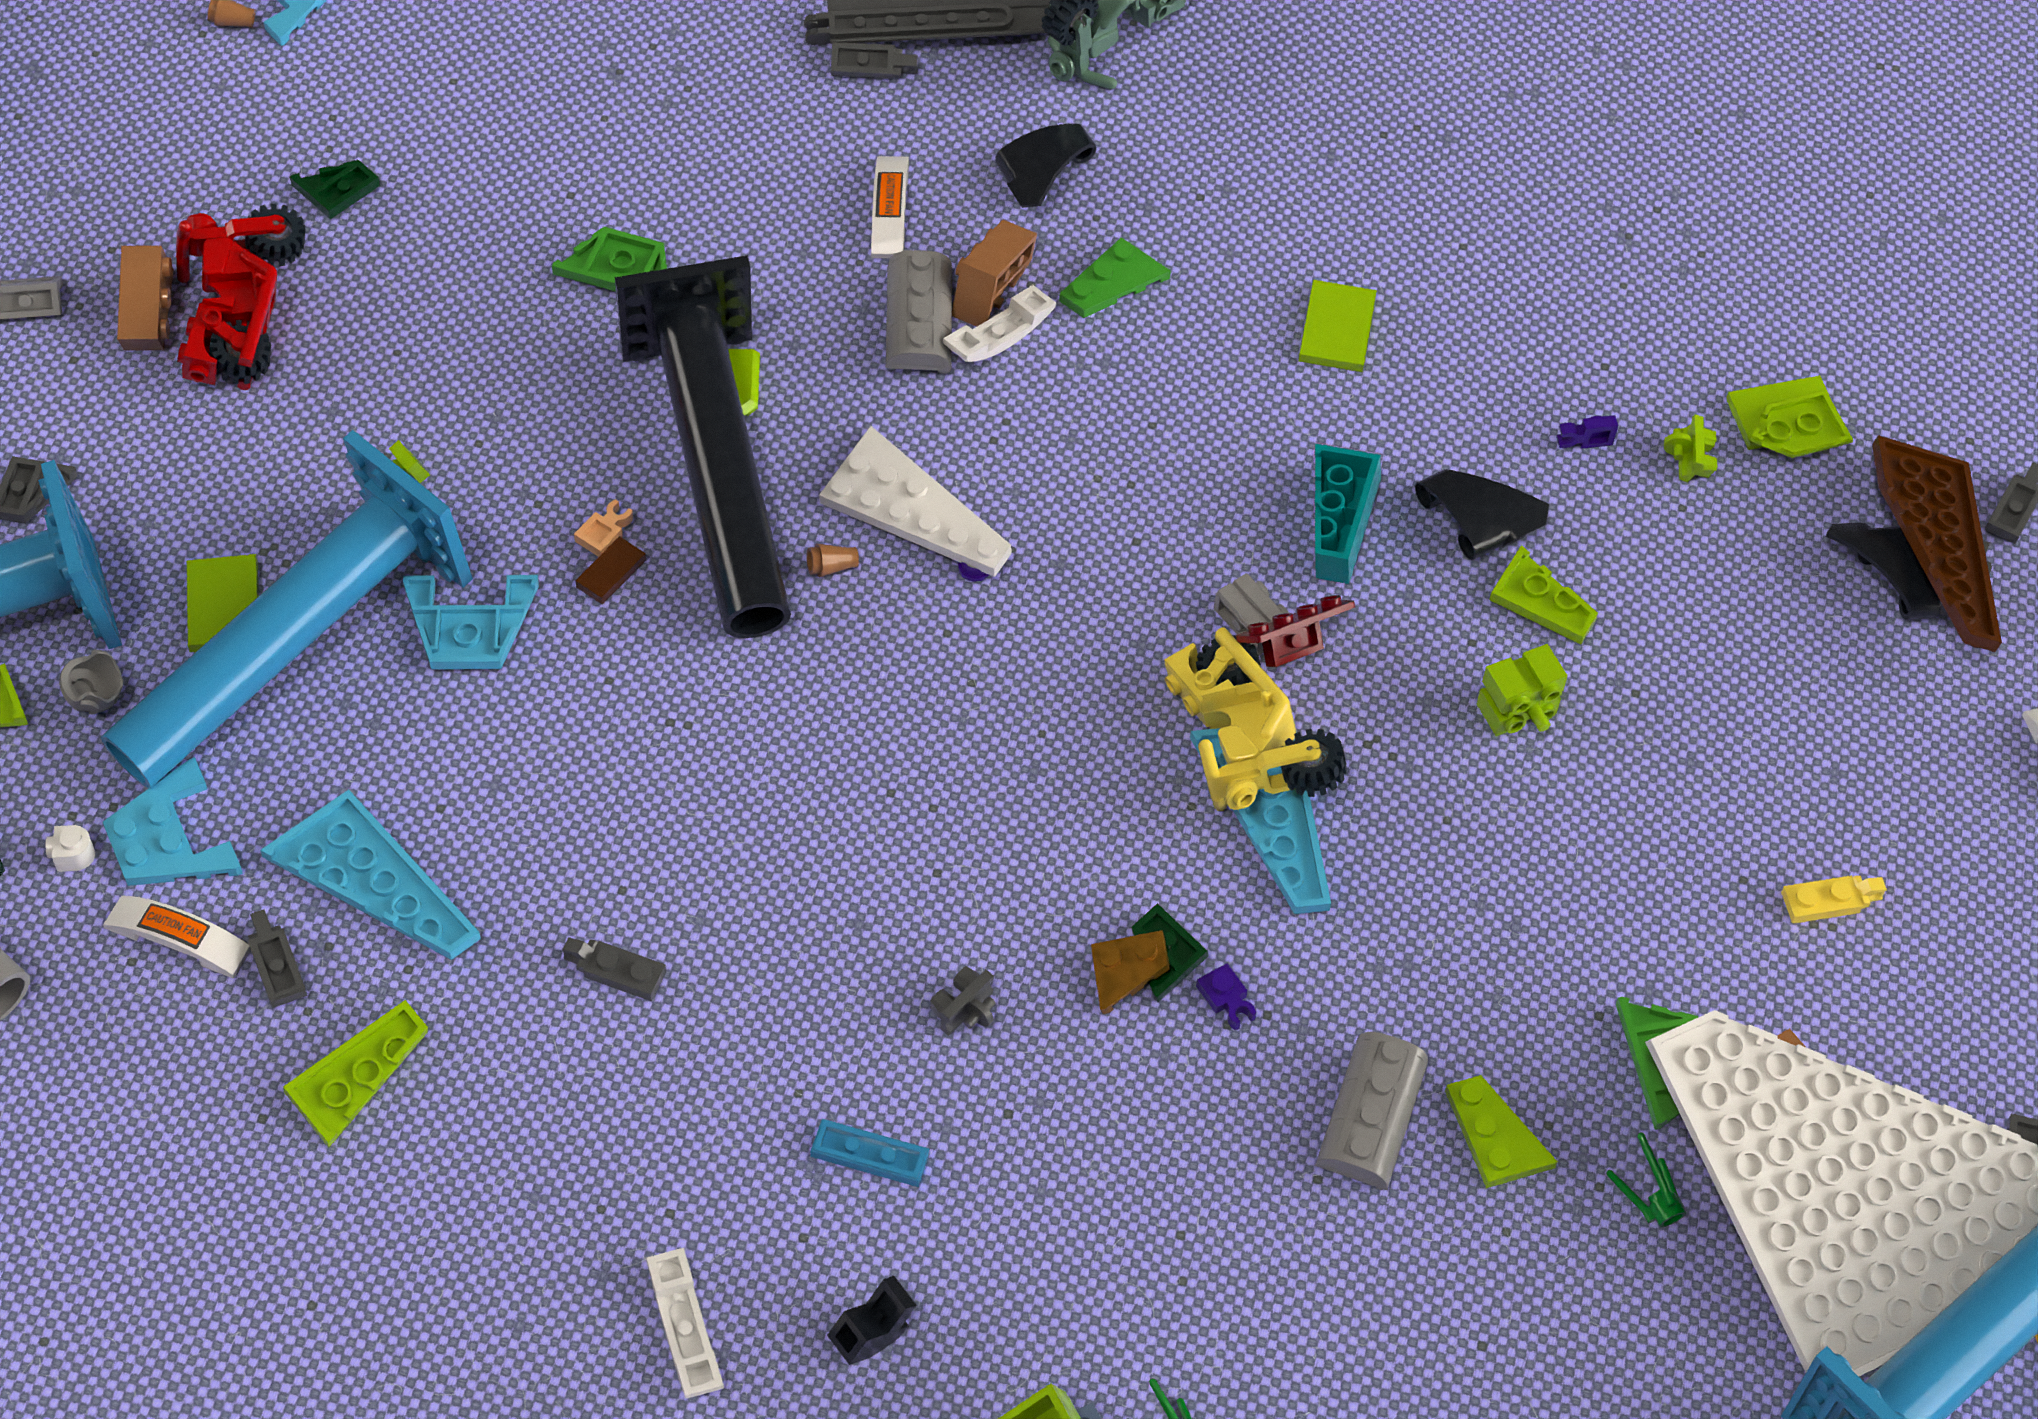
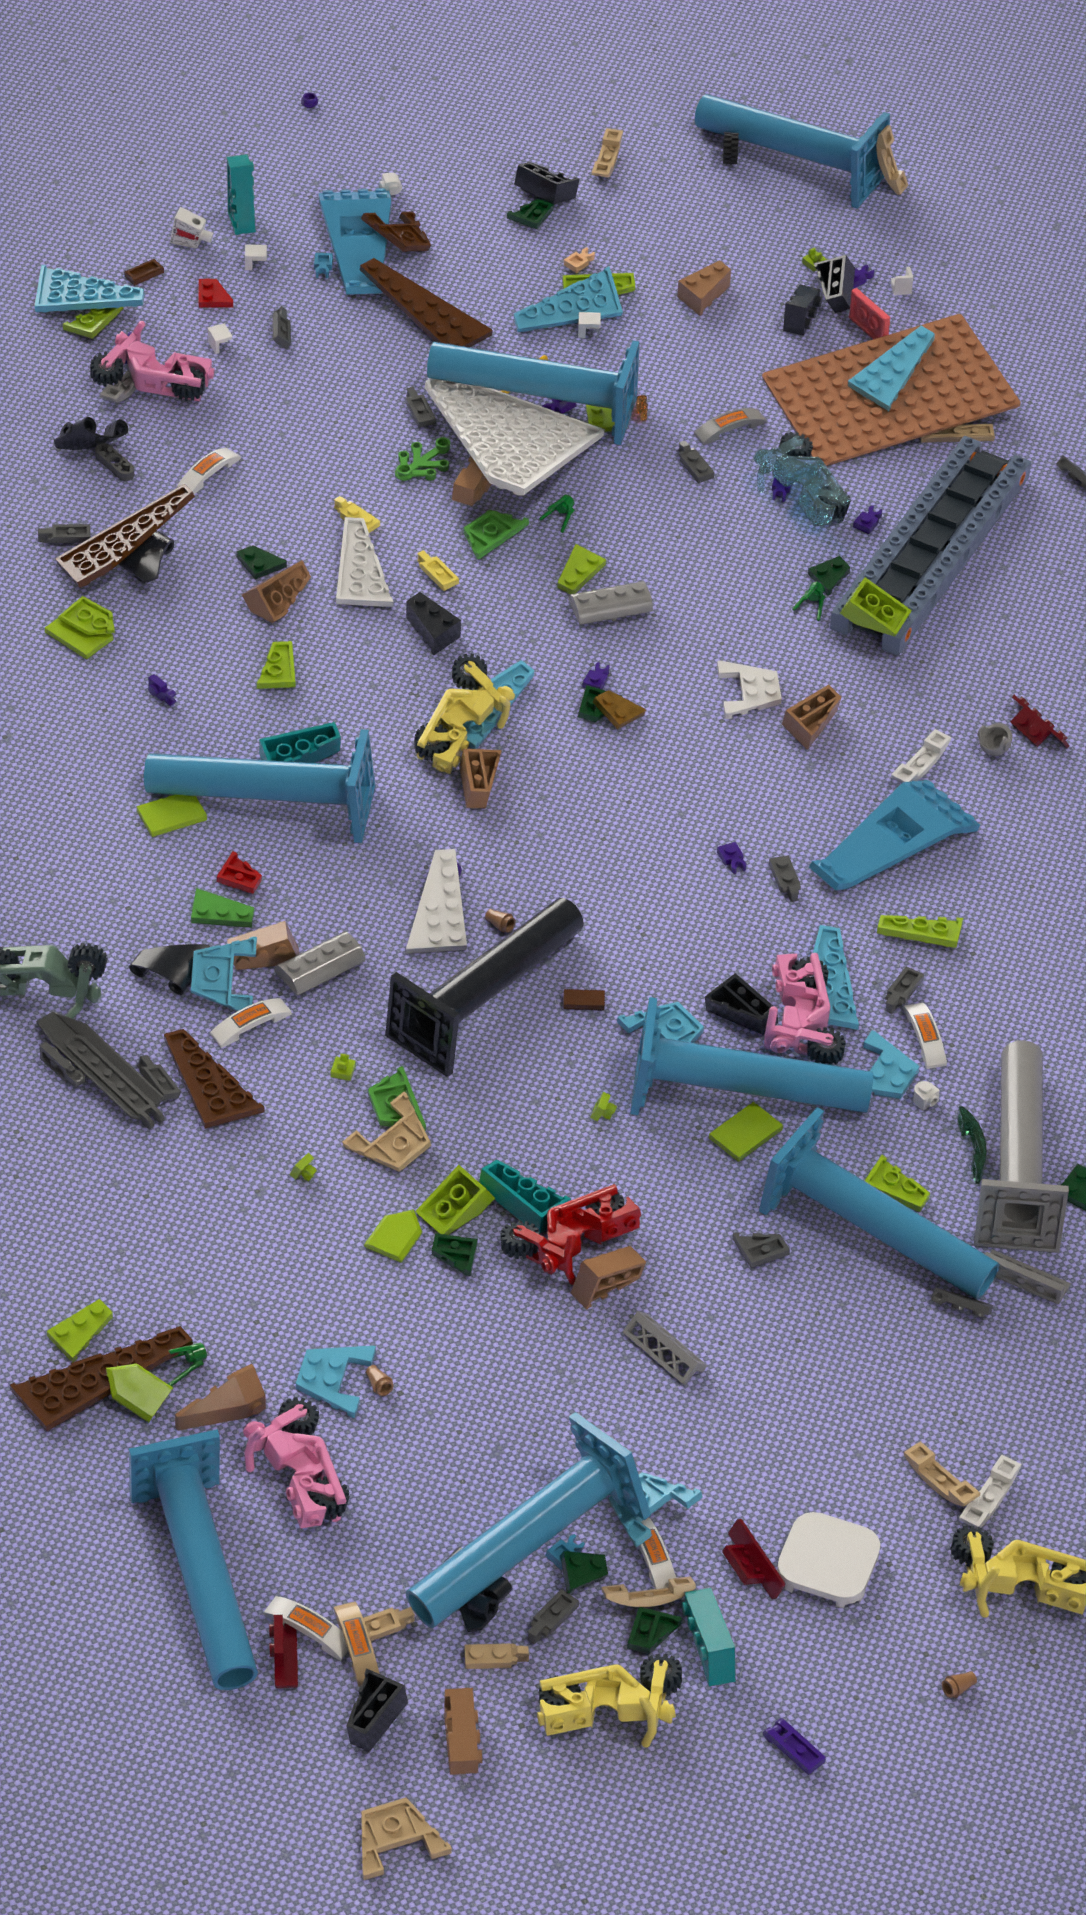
camera: 125 degrees left, 10 degrees down
(91, 682) = (842, 1138): light grey cap -> none
(341, 287) = (520, 1194): none -> teal wedge
(358, 796) = (805, 1011): none -> bright pink piece
(406, 228) = (455, 1202): none -> lime slope
(417, 727) = (739, 1004): none -> black wedge
(423, 152) = (395, 1235): none -> lime tile
(550, 225) = (398, 1144): none -> tan wing
(563, 1236) = (898, 828): none -> dark azure wing
(600, 117) = (304, 1168): none -> lime tile
(601, 530) = (567, 1012): light nougat plate -> none
(718, 927) = (732, 855): none -> dark purple plate
(728, 246) = (343, 1067): none -> lime tile
(809, 104) = (210, 1086): none -> reddish brown wing
(870, 1152) = (785, 750): dark azure tile -> none
(874, 1325) = (859, 704): black brick -> none
(898, 1220) = (811, 715): none -> medium nougat wedge
(968, 1007) = (687, 751): dark grey hips -> none
(982, 184) = (214, 972): none -> medium azure wing
(1003, 330) = (309, 933): white slope -> none
(1033, 1209) = (758, 688): none -> white wing
(1118, 689) = (477, 775): none -> medium nougat wedge
(1158, 328) = (239, 874): none -> red wing
(1196, 490) = (271, 780): none -> dark azure piece
(1245, 604) = (387, 756): light grey brick -> none
(1294, 634) = (389, 725): dark red bracket -> none
(1484, 509) = (250, 704): black panel -> none
(1499, 835) = (433, 622): none -> black wedge
(1522, 691) = (348, 641): lime brick -> none
(1621, 922) = (437, 571): none -> light yellow hinge
(1677, 812) = (360, 572): none -> white wing
(1689, 448) = (137, 651): lime hips -> none
(1708, 680) = (277, 593): none -> medium nougat wedge
(1803, 709) = (260, 562): none -> dark green wing
(1911, 1063) = (406, 472): none -> bright green plant

